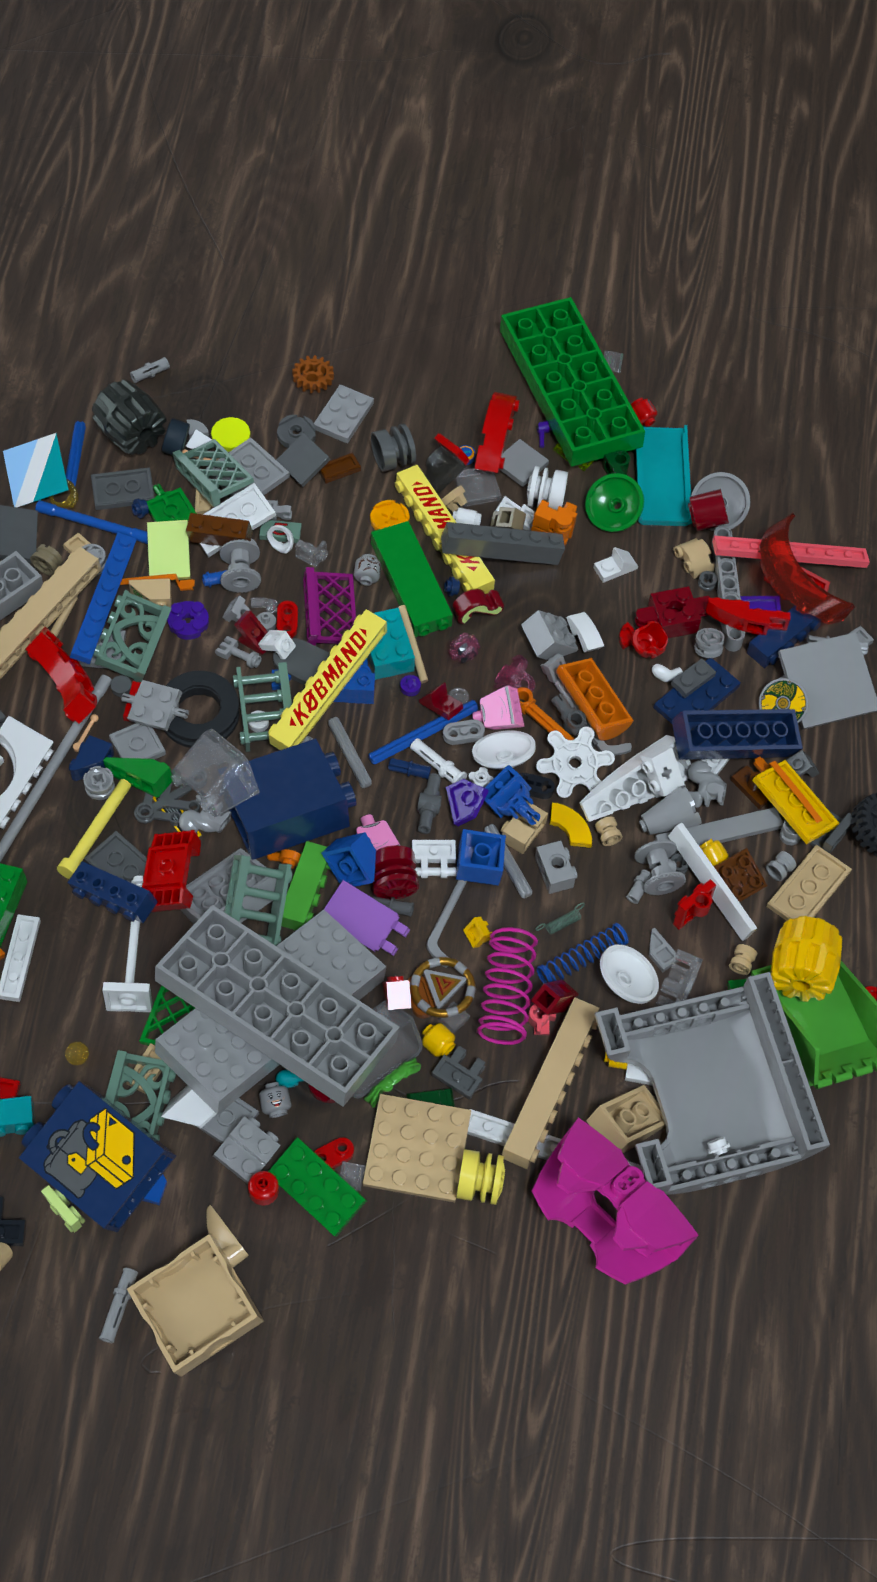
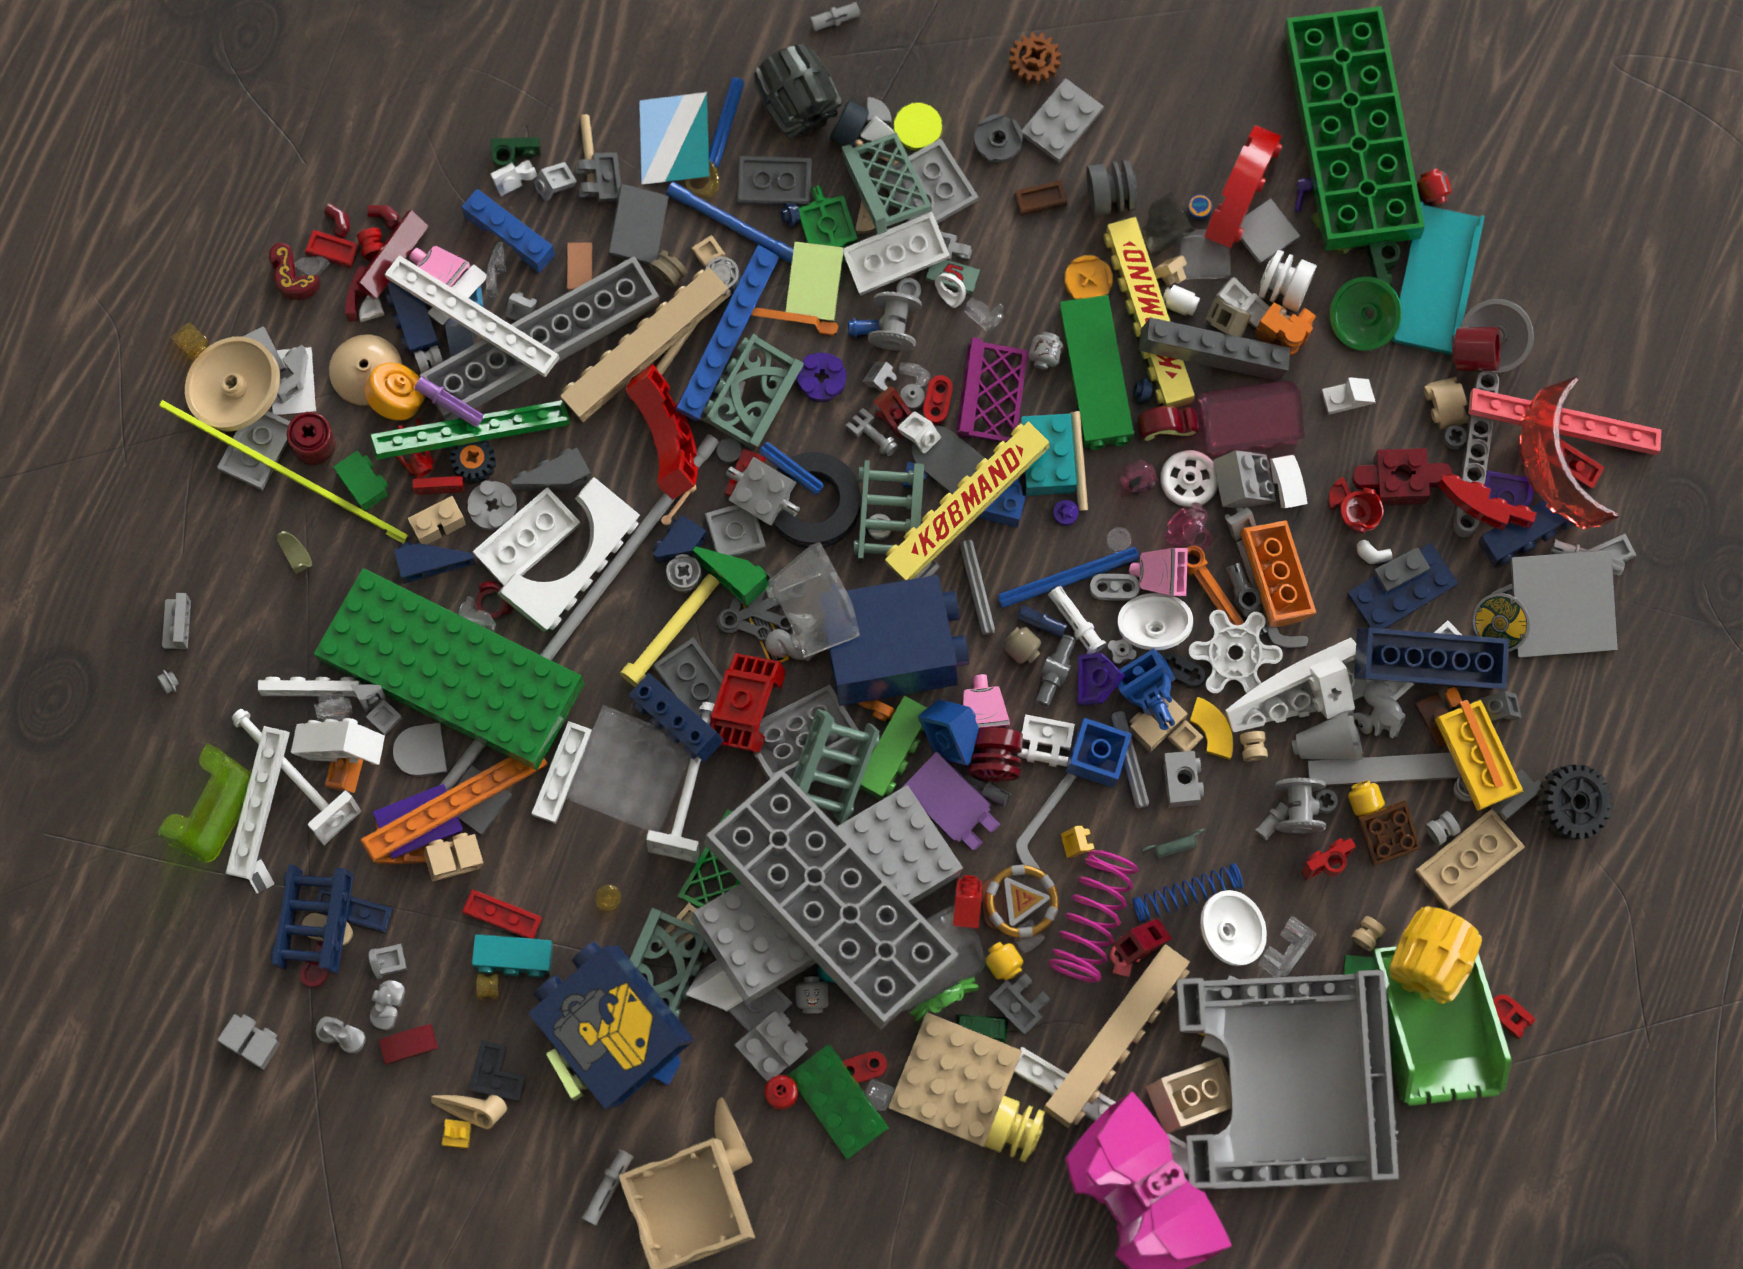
camera: 15 degrees right, 15 degrees up
(78, 945) = (629, 770): none -> clear plate
(153, 590) = (786, 335): tan slope -> none
(170, 681) = (791, 468): none -> blue axle
(216, 529) = (877, 271): reddish brown brick -> none
(303, 459) = (998, 182): dark grey tile -> none
(397, 787) = (1022, 645): none -> dark tan head
(441, 702) = (1096, 545): dark red slope -> none
(452, 448) = (1183, 201): red tile -> none
(512, 631) = (1178, 461): none -> white plate
(544, 590) = (1251, 416): none -> clear pink windscreen
(549, 834) = (1185, 737): none -> tan tile
(614, 360) = (1413, 105): clear tile -> none
(661, 952) = (1279, 904): light grey tile -> none
(705, 871) = (1356, 831): white tile -> none
(710, 642) = (1434, 524): light grey wheel -> none
(718, 1146) = (1281, 1148): white plate -> none

